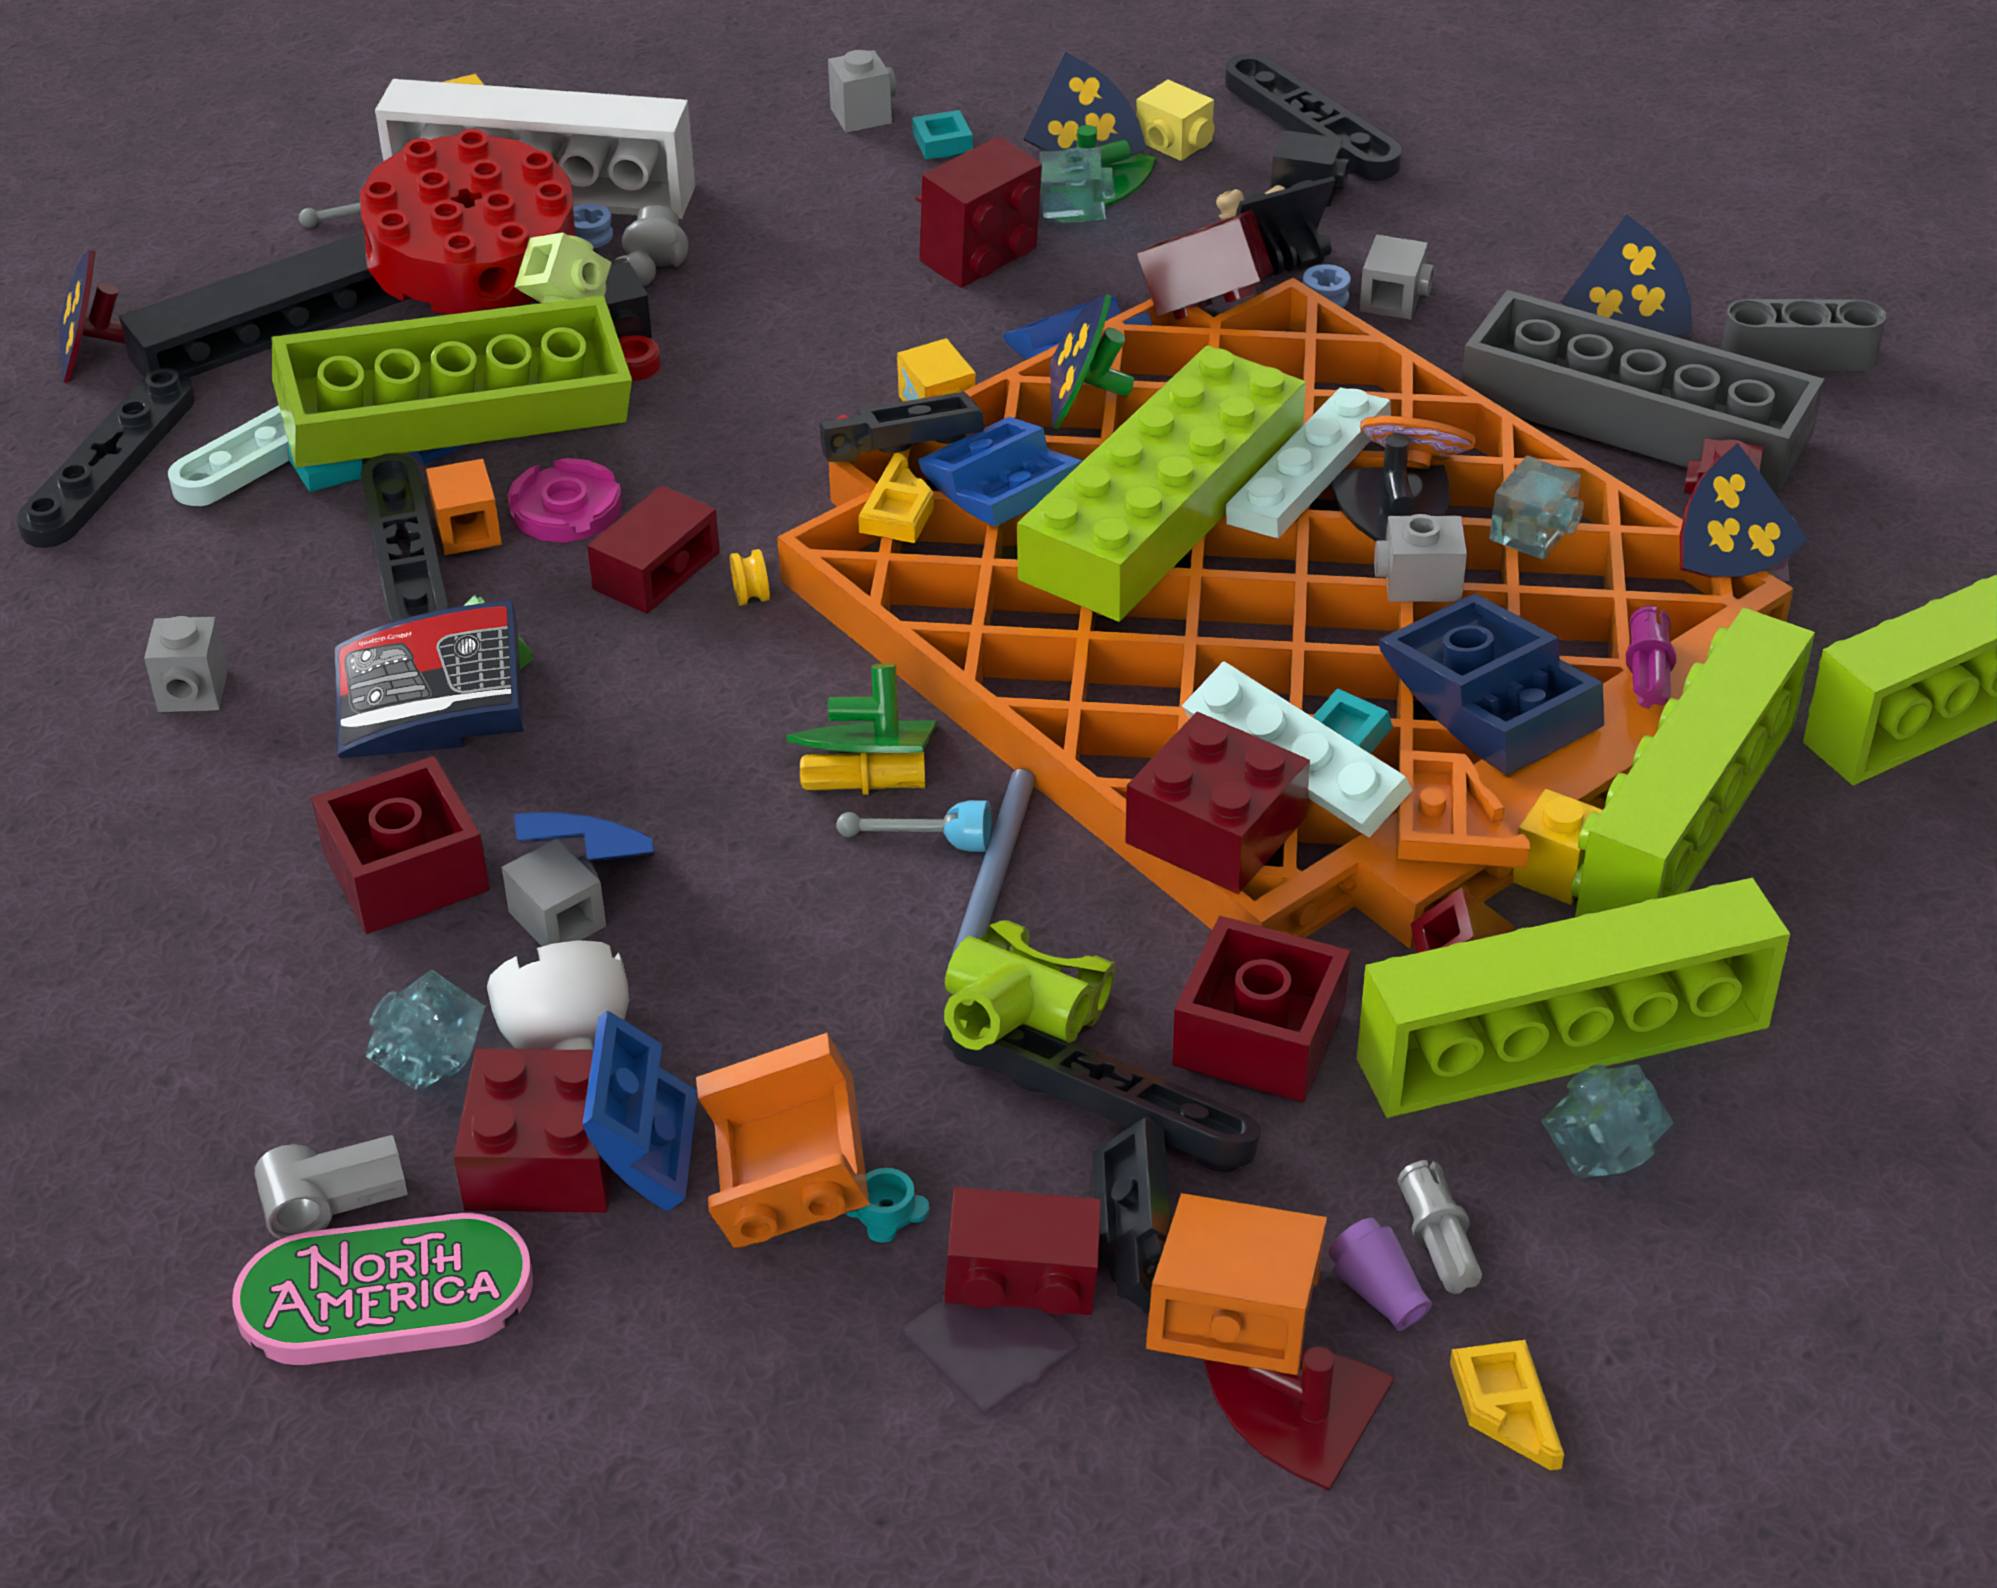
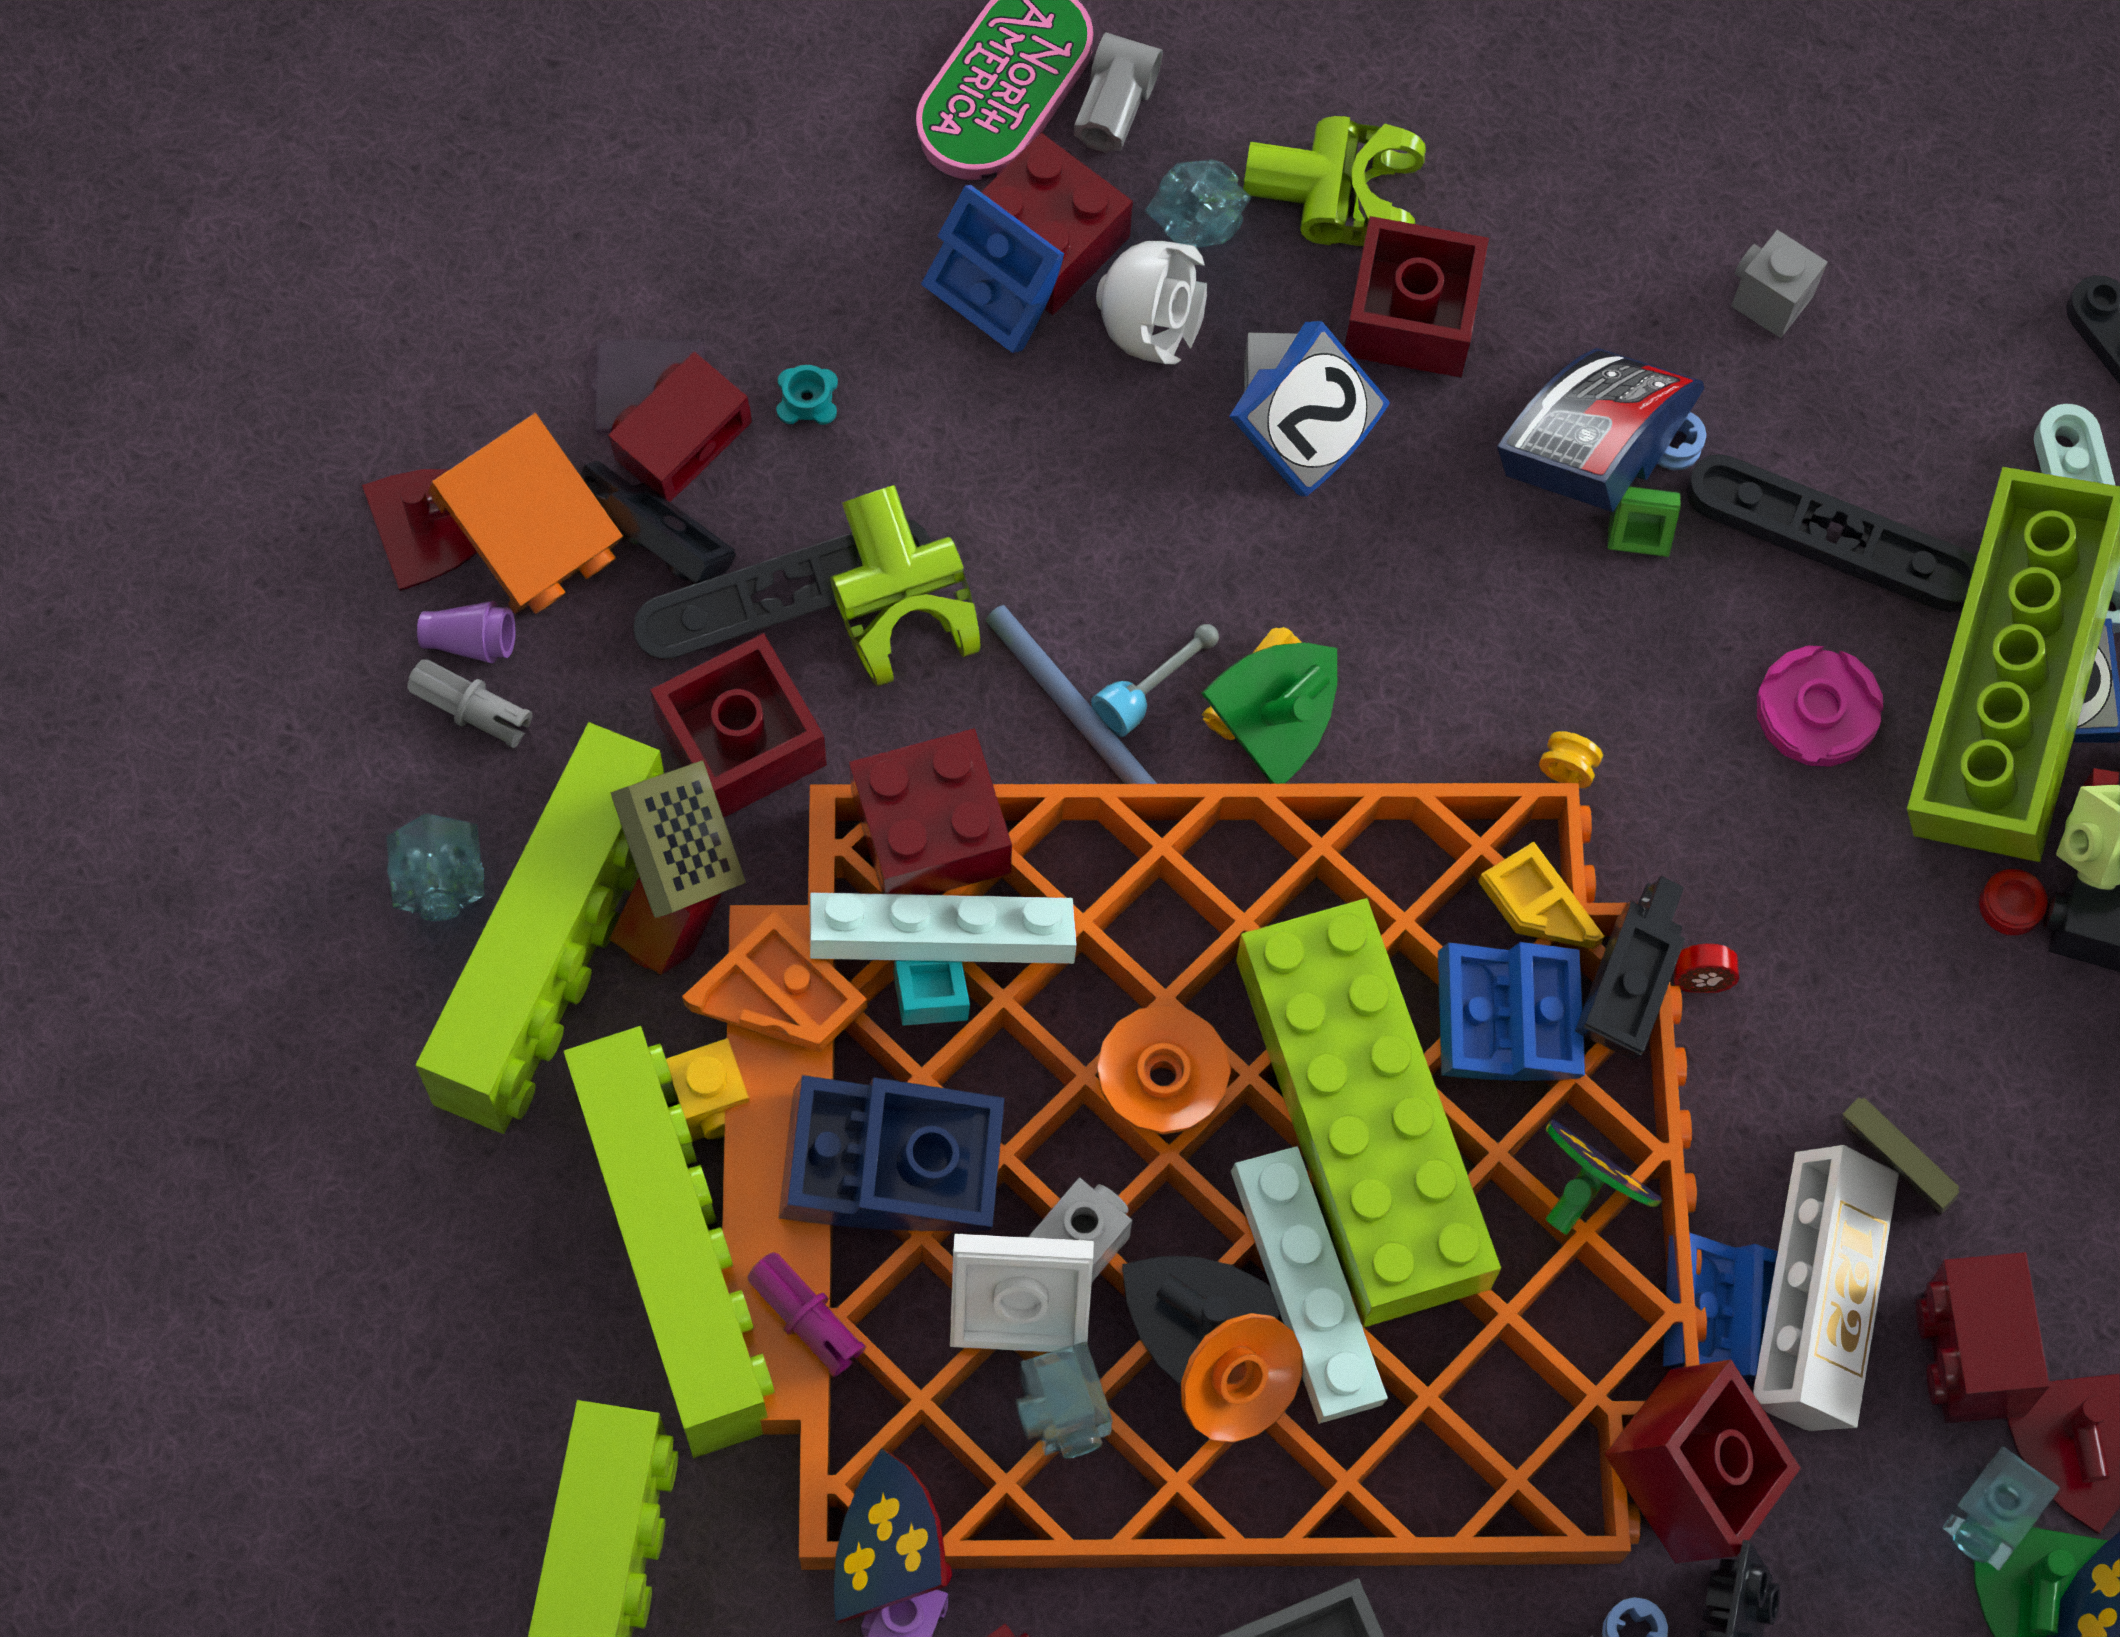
camera: 125 degrees right, 25 degrees up
(308, 979) = (1326, 175): none -> lime connector
(464, 506) = (1844, 593): orange brick -> none
(653, 549) = (1670, 708): dark red brick -> none
(784, 1141) = (892, 351): orange panel -> none
(895, 289) = (1901, 1155): none -> olive tile
(933, 371) = (1737, 1110): yellow brick -> none
(1019, 291) = (1825, 1289): none -> white brick
(1255, 583) = (1169, 1040): none -> orange dish
(1419, 914) = (678, 838): none -> olive tile
(1507, 536) = (1020, 1292): none -> white tile
(1507, 1400) = (318, 633): yellow tile -> none

